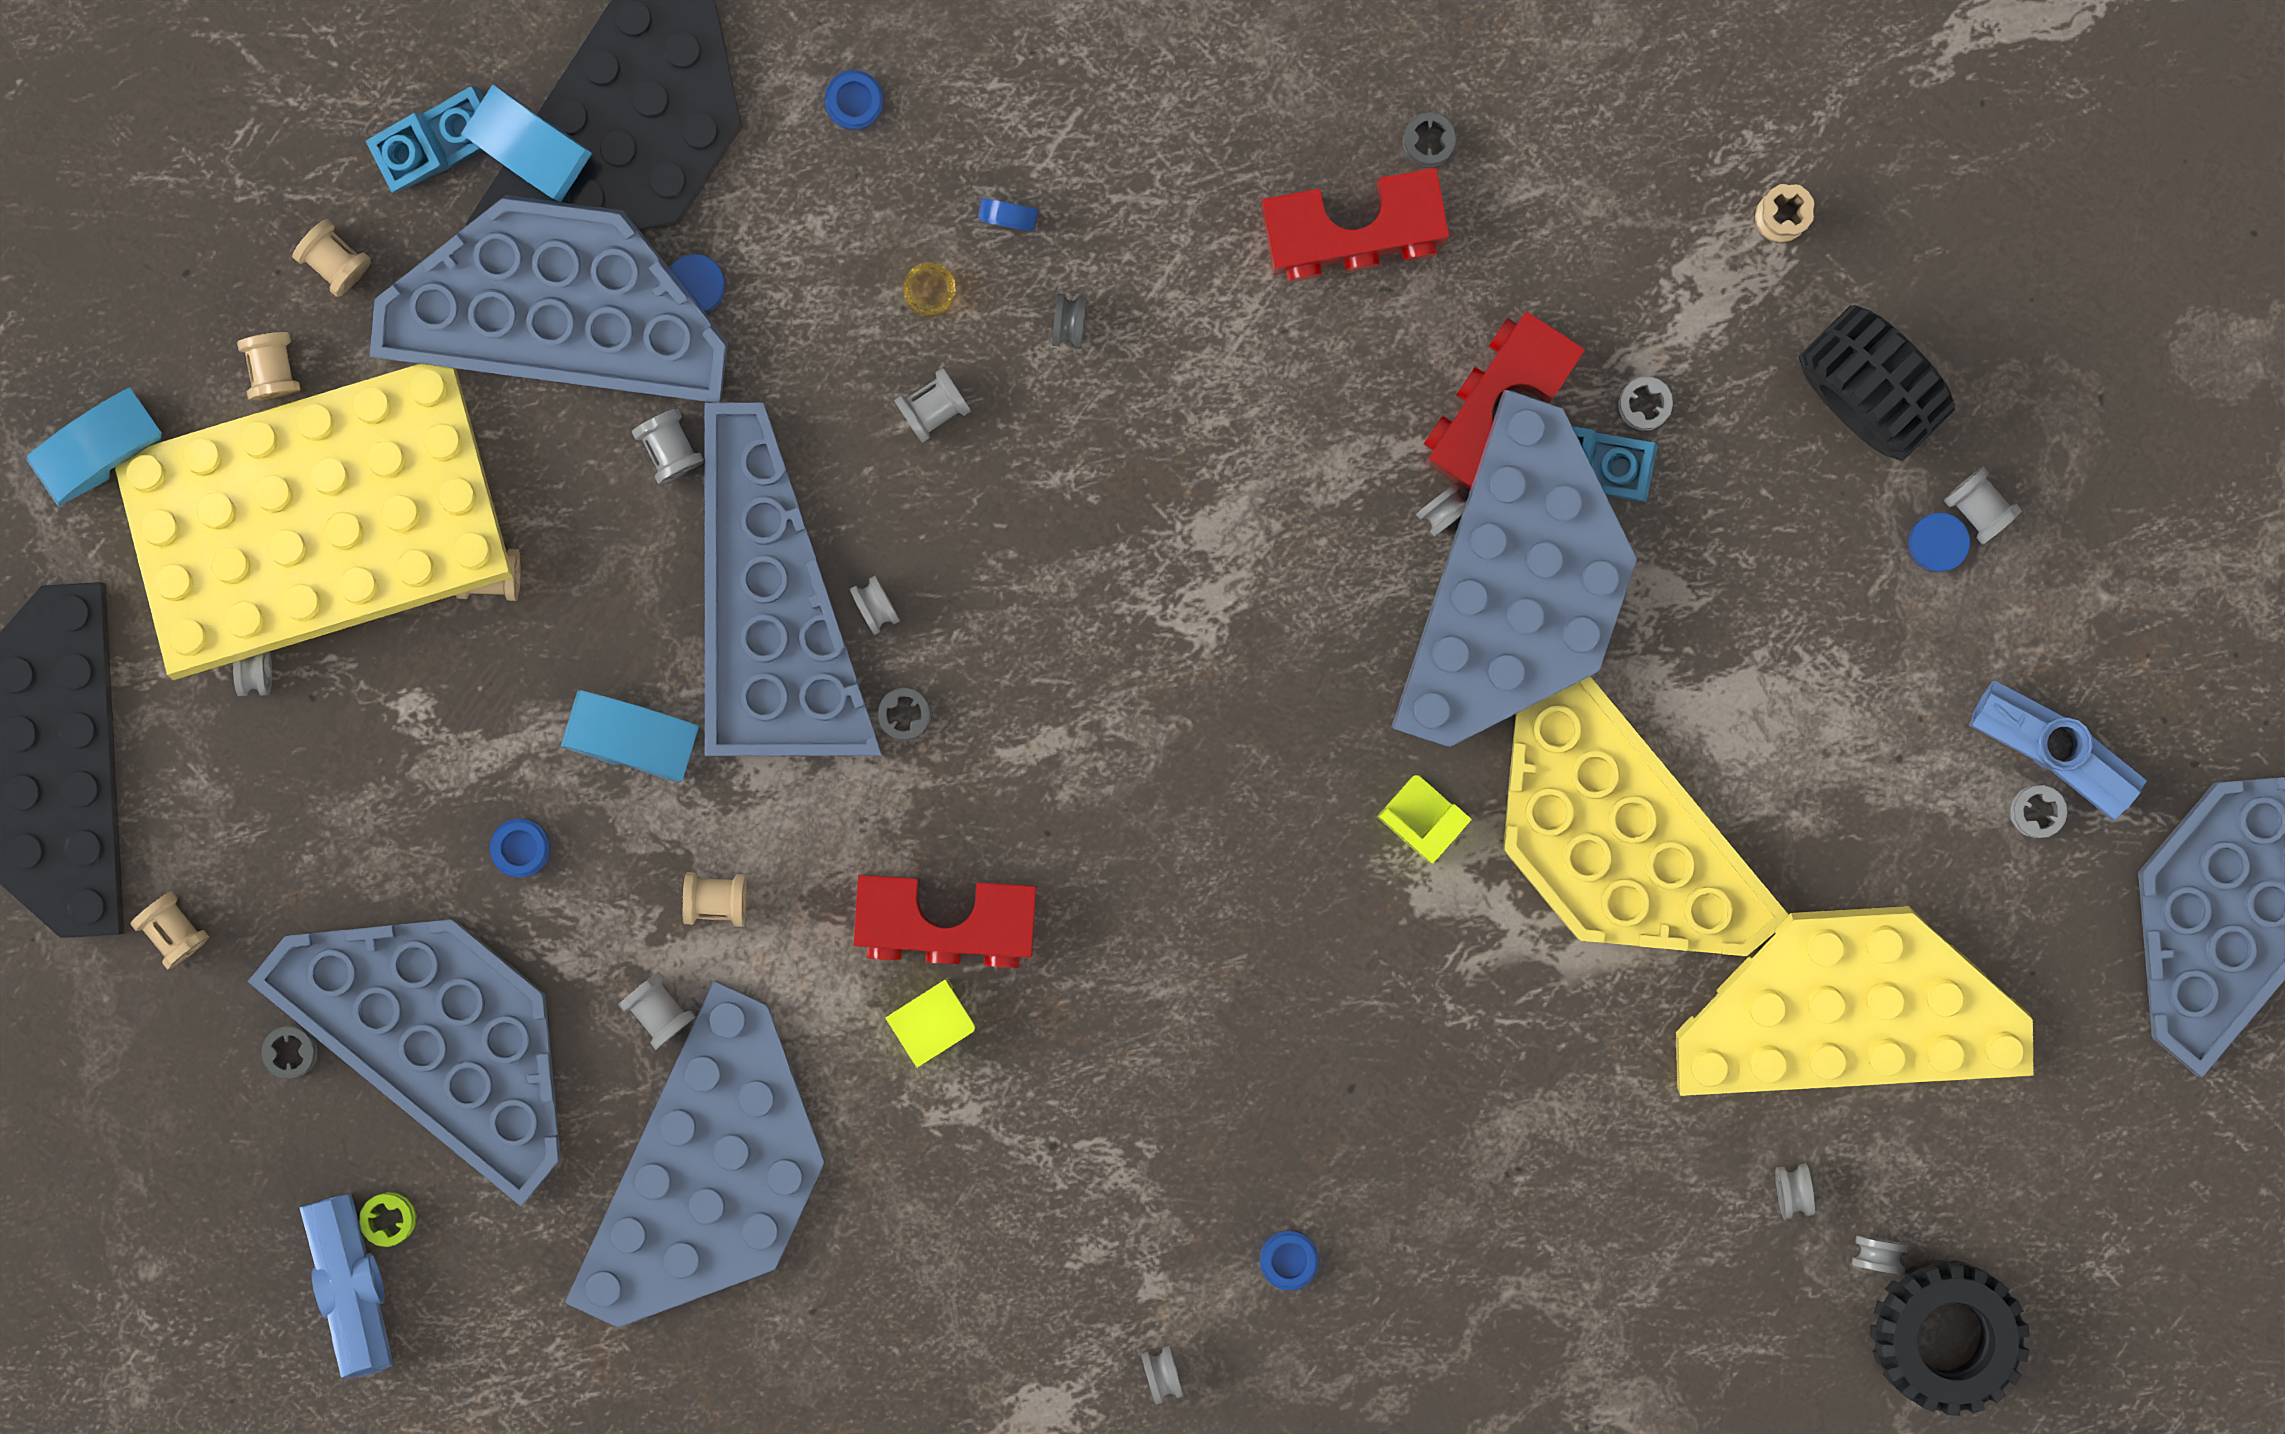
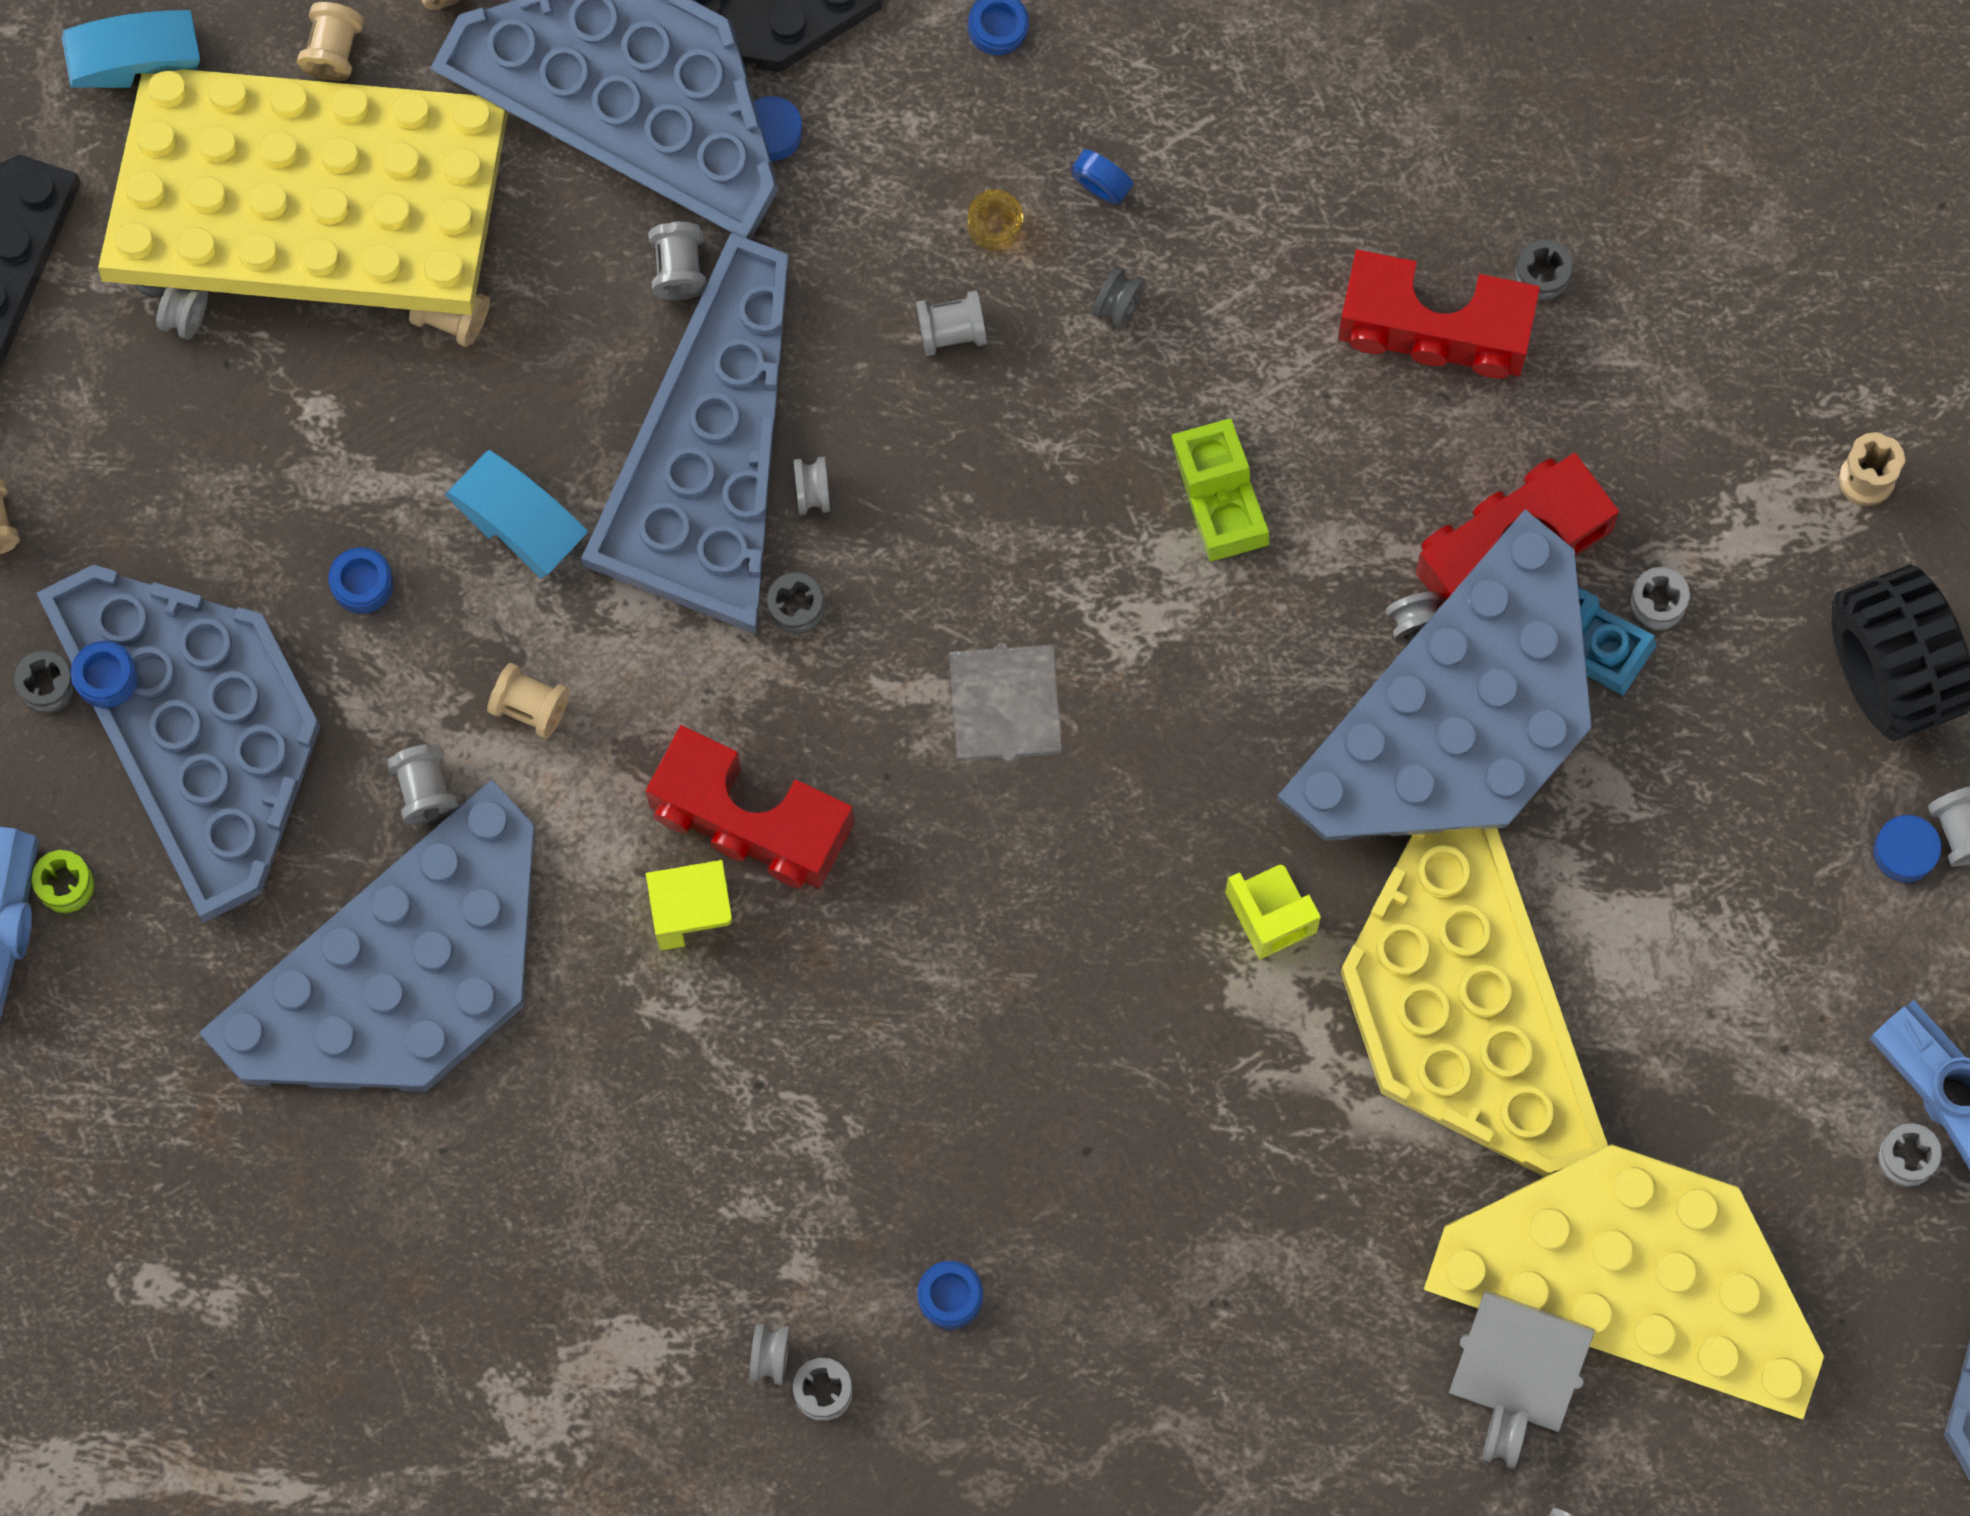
camera: 20 degrees right, 15 degrees down
(342, 1032) = (104, 674): none -> blue tile
(1121, 727) = (1005, 703): none -> clear piece
(1211, 1400) = (837, 1375): none -> light grey bush
(1228, 460) = (1220, 490): none -> lime slope
(1784, 1122) = (1522, 1360): none -> light grey piece

